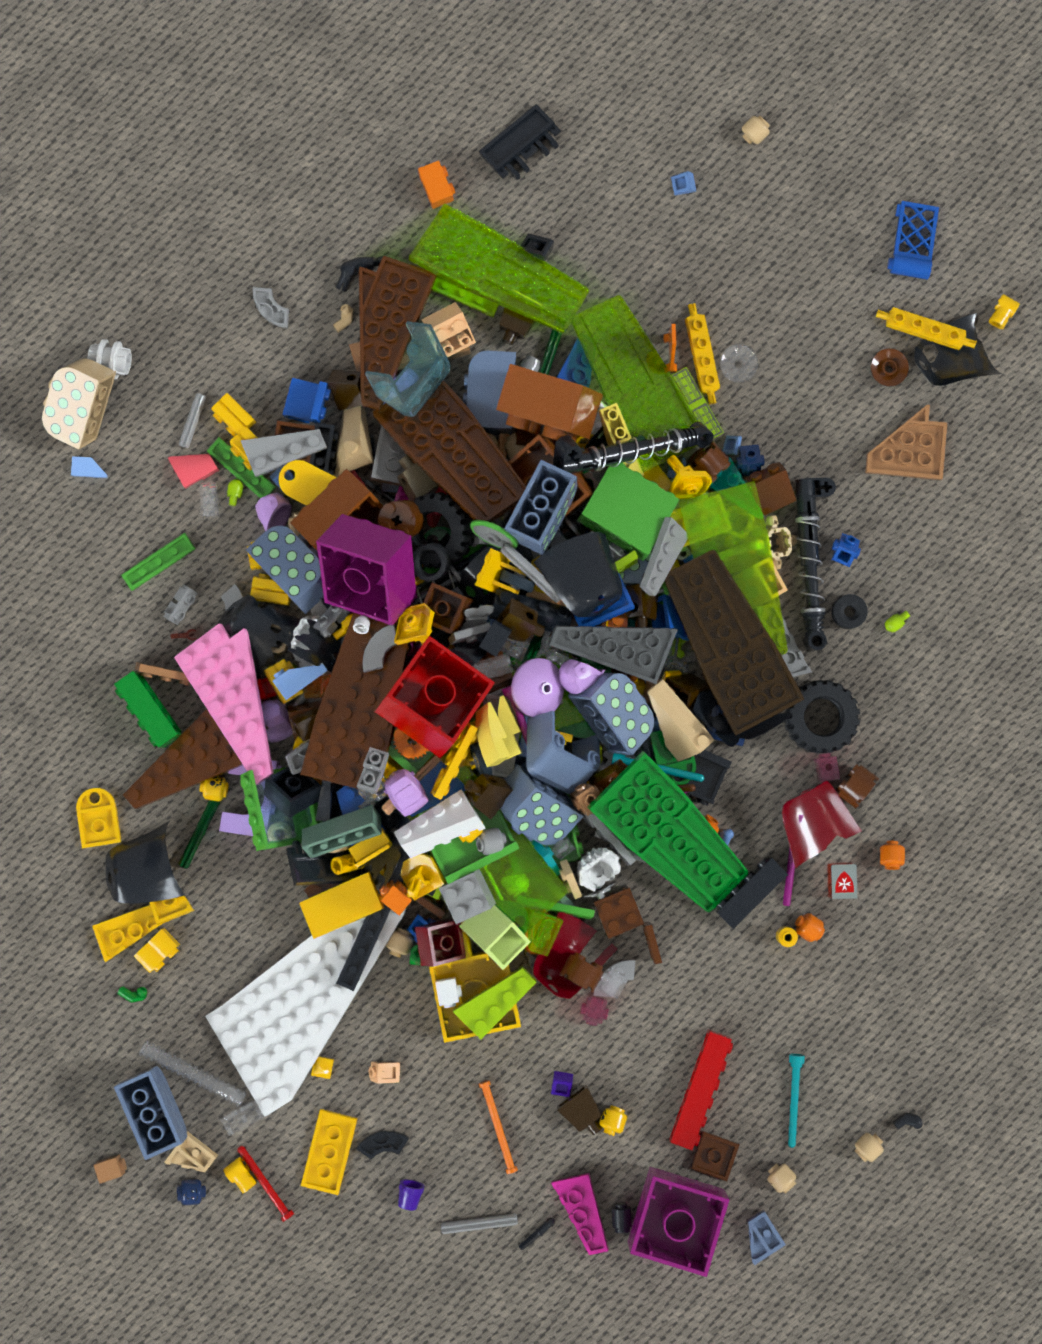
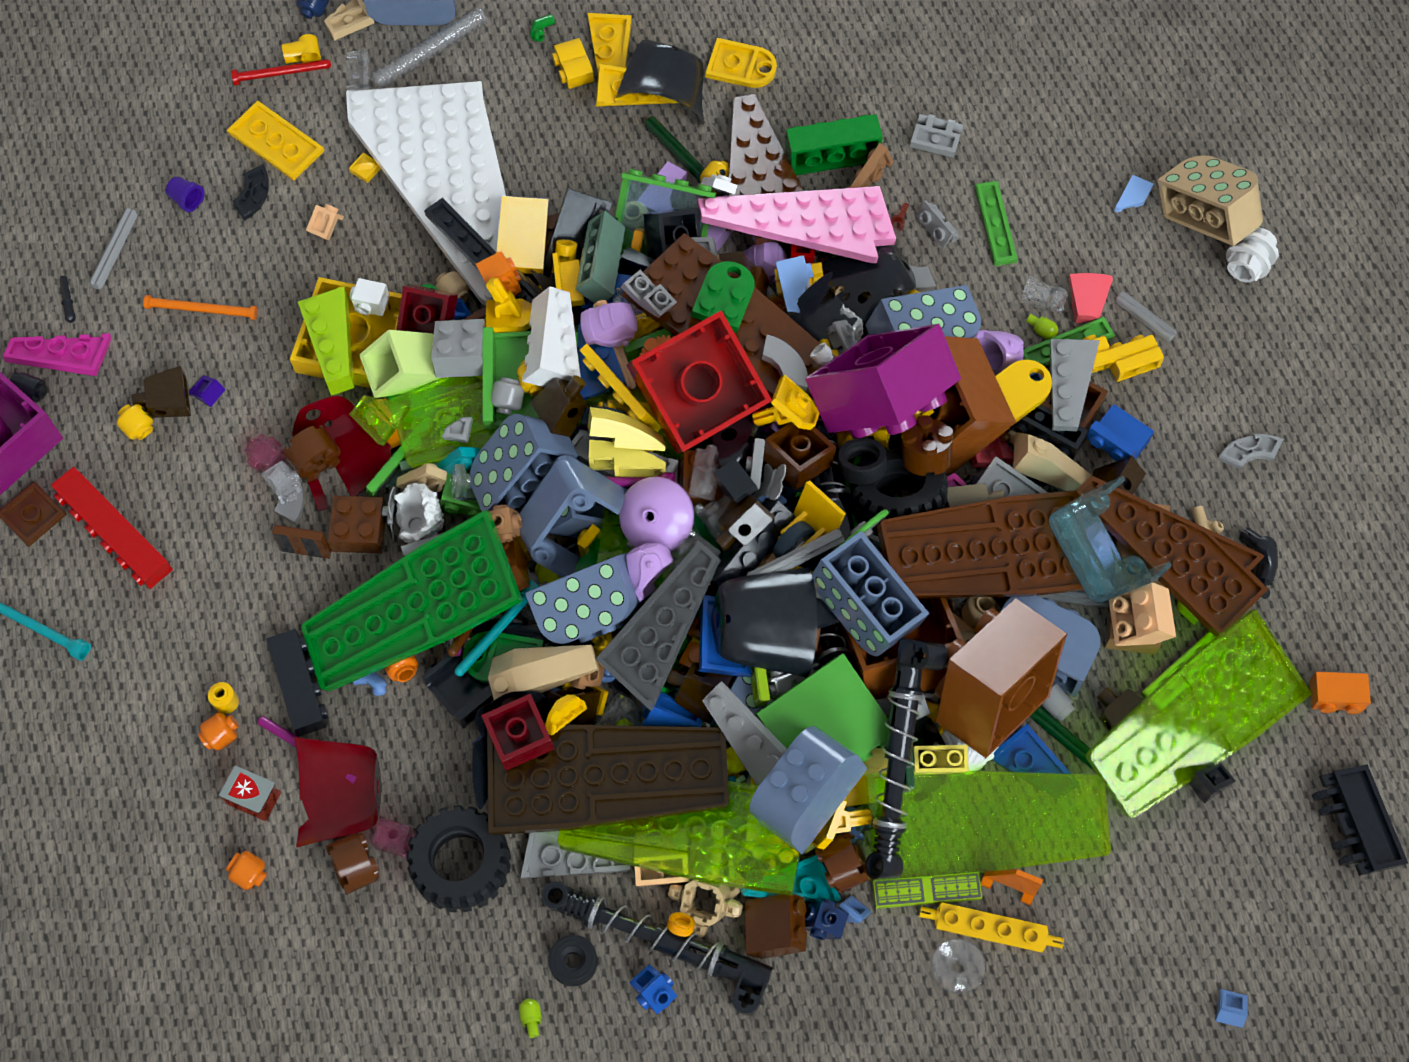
camera: 120 degrees right, 20 degrees down
(104, 637) = (936, 140): none -> light grey plate
(231, 777) = (720, 184): none -> white plate
(303, 818) = (638, 238): none -> light orange tile
(346, 716) = (725, 293): none -> green plate
(527, 866) = (459, 430): none -> light grey tile
(687, 496) = (806, 787): none -> sand blue brick
(701, 689) = (563, 712): none -> yellow plate
(734, 709) = (518, 732): none -> dark red brick
(799, 549) = (681, 924): none -> light orange tile

